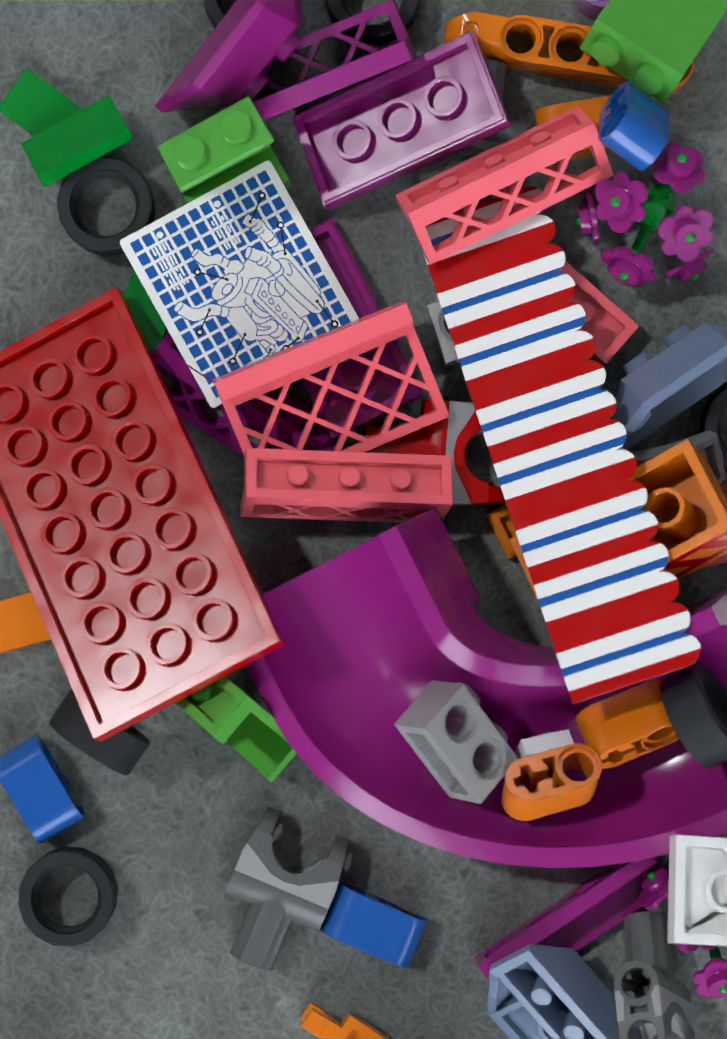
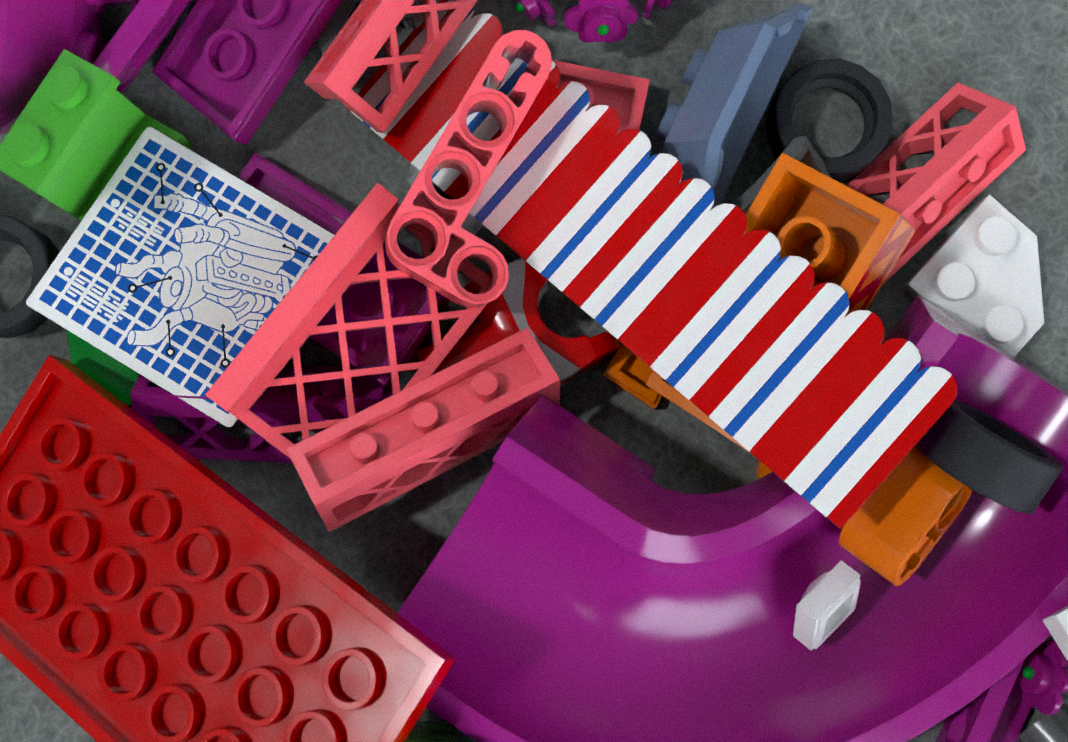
camera: 30 degrees left, 5 degrees down
(466, 750) = (725, 650): light grey brick -> none
(480, 330) = (476, 161): none -> coral beam
(550, 794) = (875, 638): orange beam -> none

